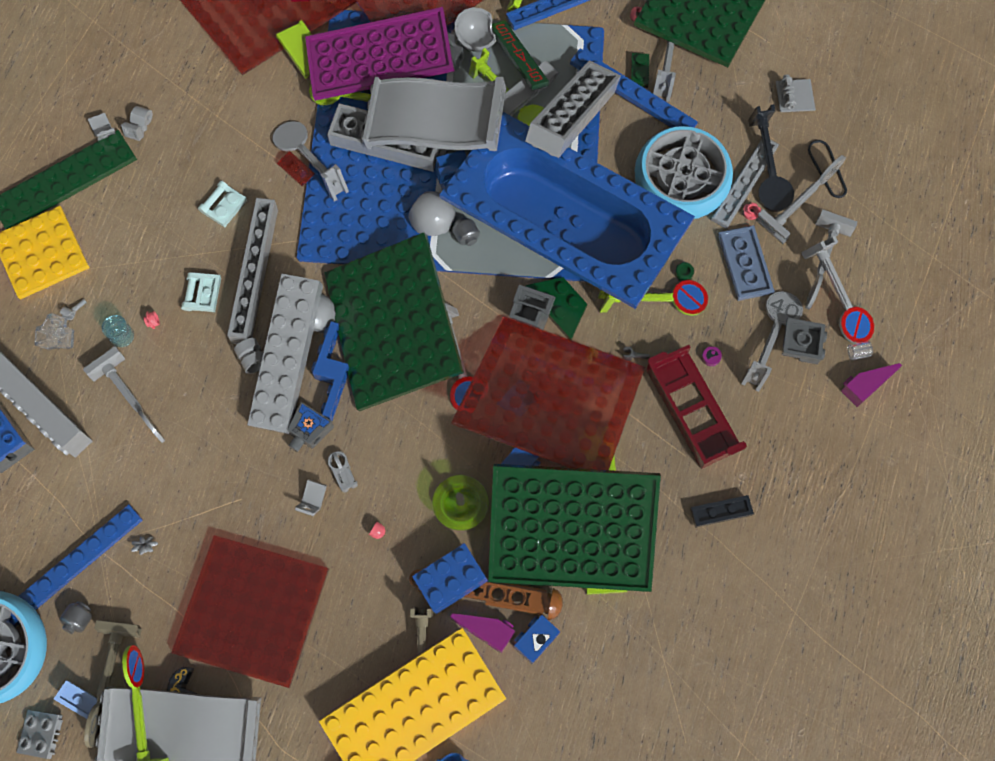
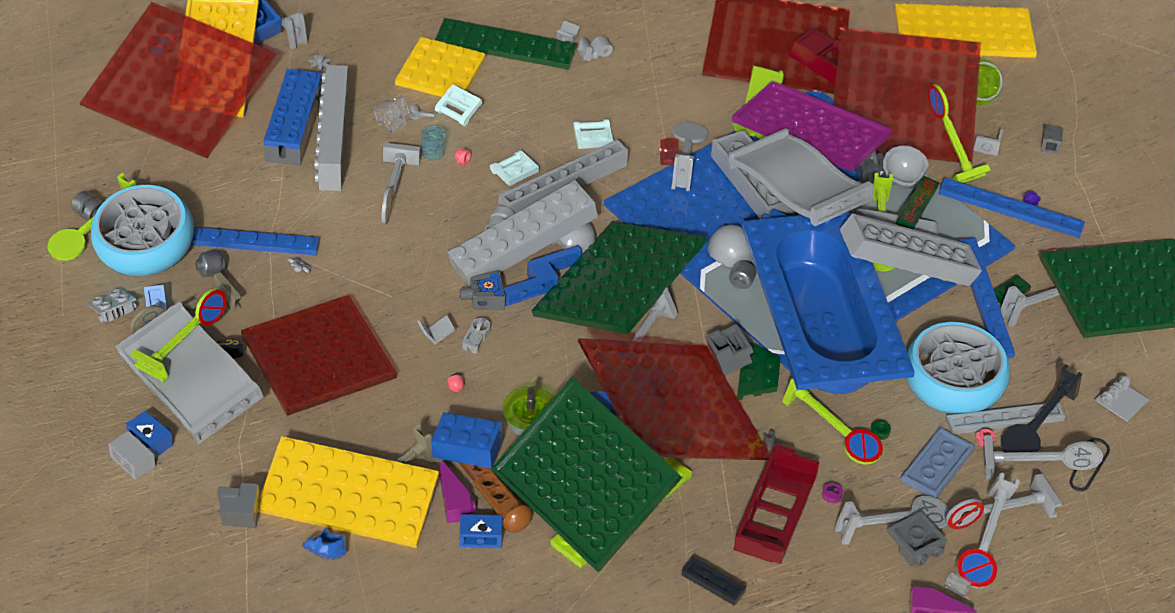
camera: 45 degrees right, 25 degrees down
(94, 269) = (460, 99): none -> light aqua plate

